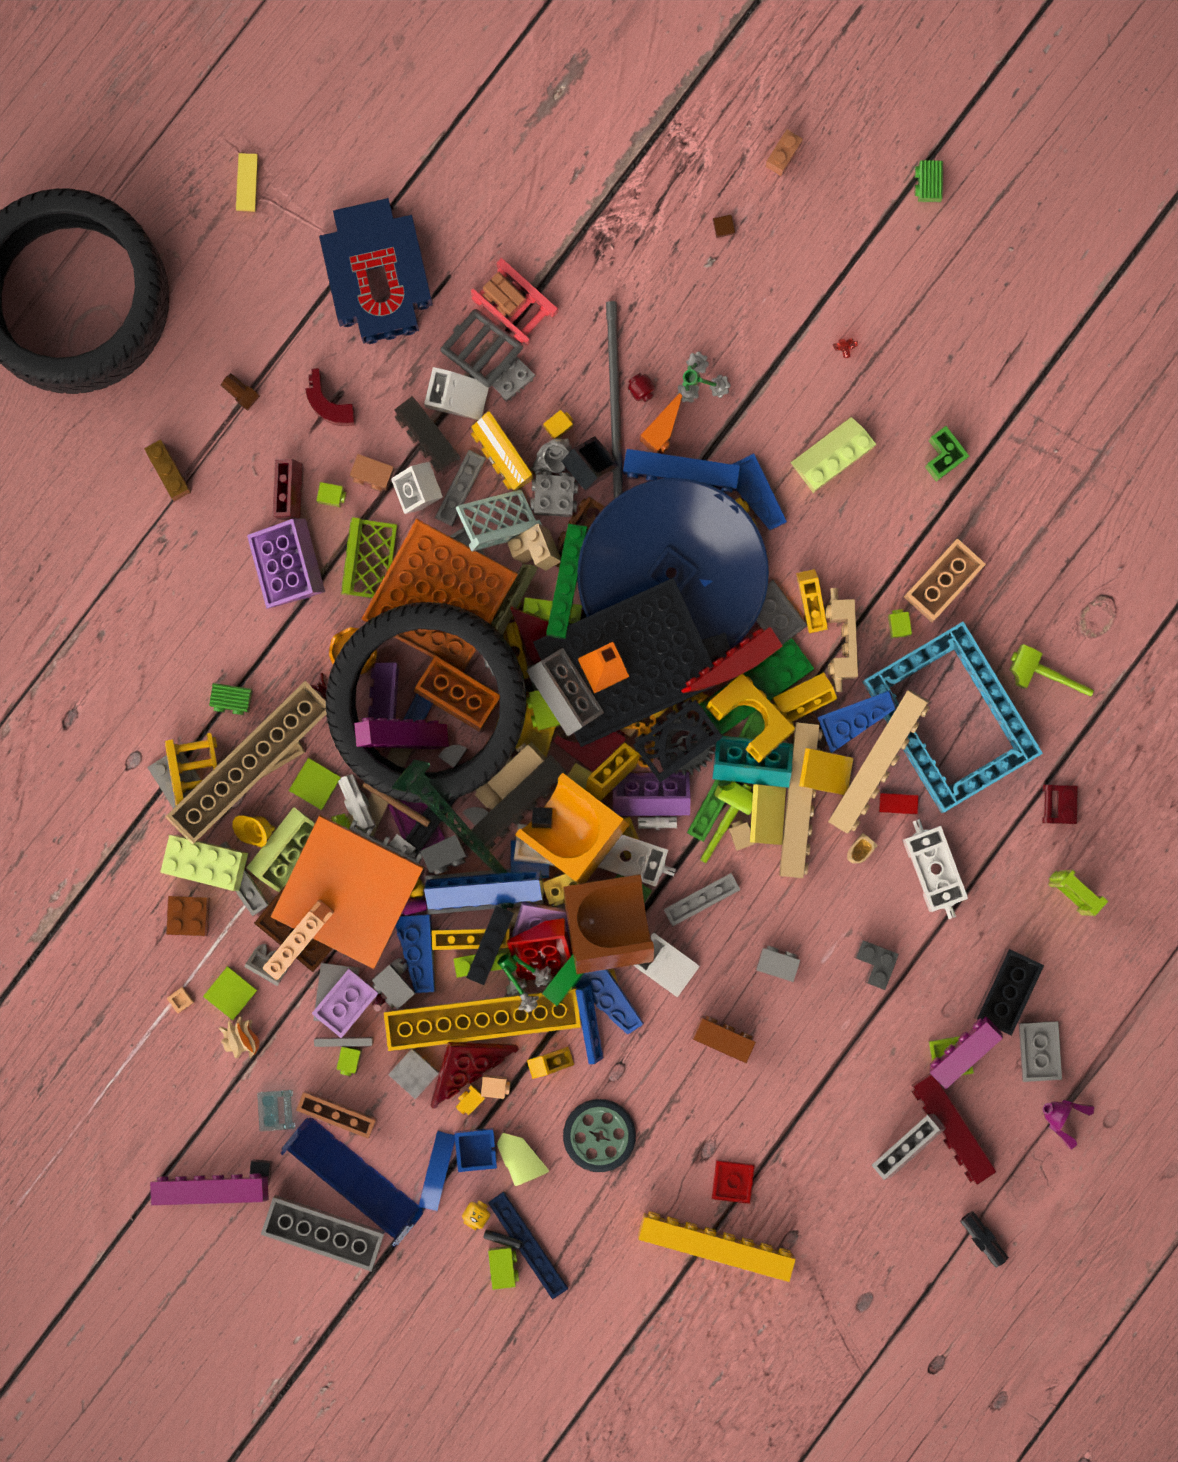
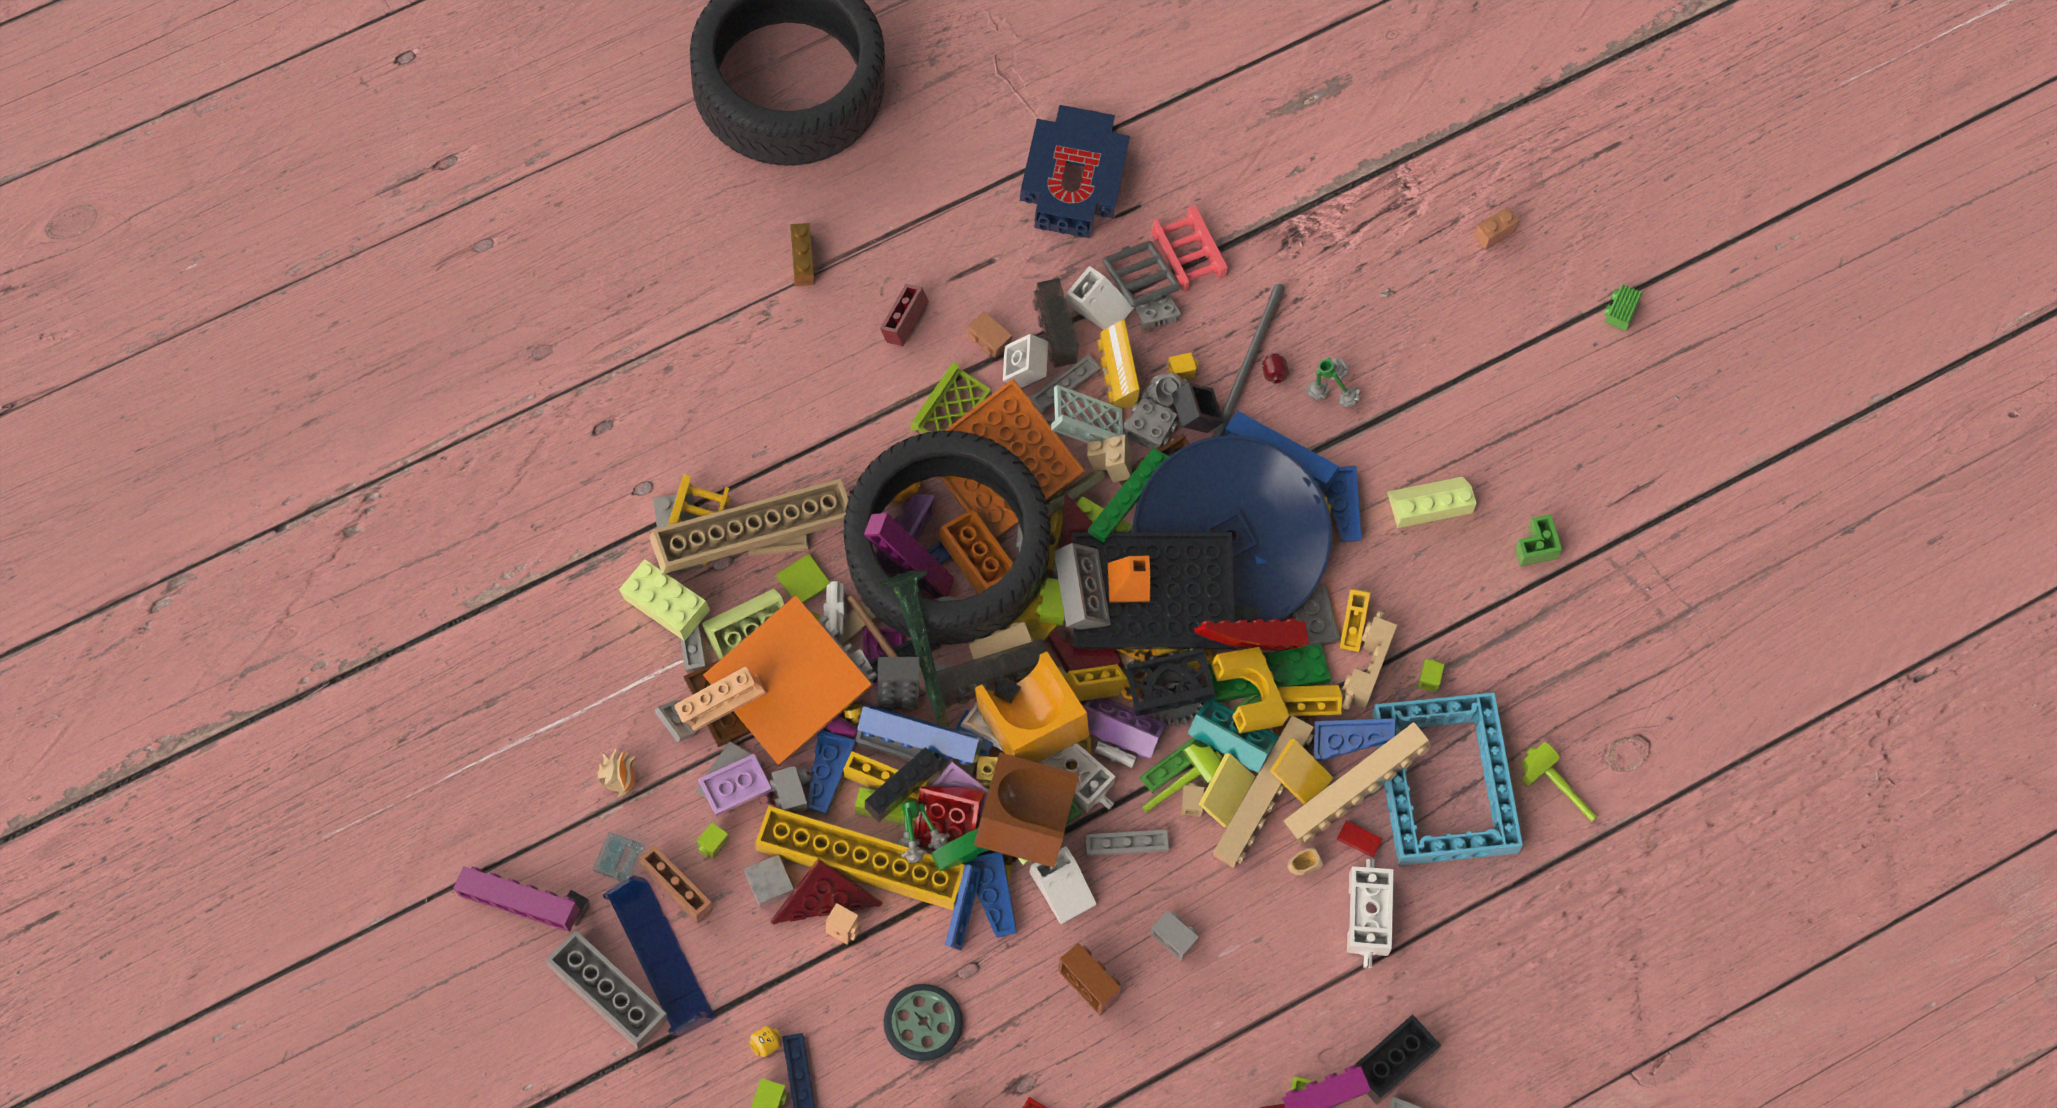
camera: 20 degrees right, 20 degrees down
(180, 1000) = (577, 717): light nougat tile -> none
(187, 916) = (624, 642): dark orange brick -> none
(230, 698) = (761, 470): bright green brick -> none
(230, 993) = (628, 731): lime tile -> none
(243, 394) = (901, 220): reddish brown piece -> none
(247, 182) = (992, 55): light yellow tile -> none
(252, 829) = (724, 592): yellow piece -> none
(286, 563) = (872, 377): medium lavender slope -> none
(331, 494) = (942, 337): lime brick -> none
(332, 413) = (975, 269): dark red arch -> none
(344, 1041) = (706, 818): light grey tile -> none
(437, 1170) = (745, 985): blue slope -> none
(469, 1101) = (811, 930): yellow brick -> none
(475, 1150) = (795, 977): blue piece -> none
(488, 796) = (961, 654): tan brick -> none
(503, 294) = (1183, 235): nougat brick -> none
(503, 1239) = (780, 1077): black piece -> none
(520, 1159) = (834, 1007): yellowish green panel -> none
(550, 1062) = (907, 929): yellow slope -> none
(659, 432) = (1278, 406): orange slope -> none
(723, 226) = (1413, 267): reddish brown tile -> none
(845, 347) = (1483, 414): clear red plant -> none
(881, 961) = (1278, 975): dark grey brick -> none
(944, 580) = (1491, 652): light nougat brick -> none
(1066, 804) = (1526, 910): dark red plate -> none
(1077, 892) = (1508, 1002): lime fence -> none

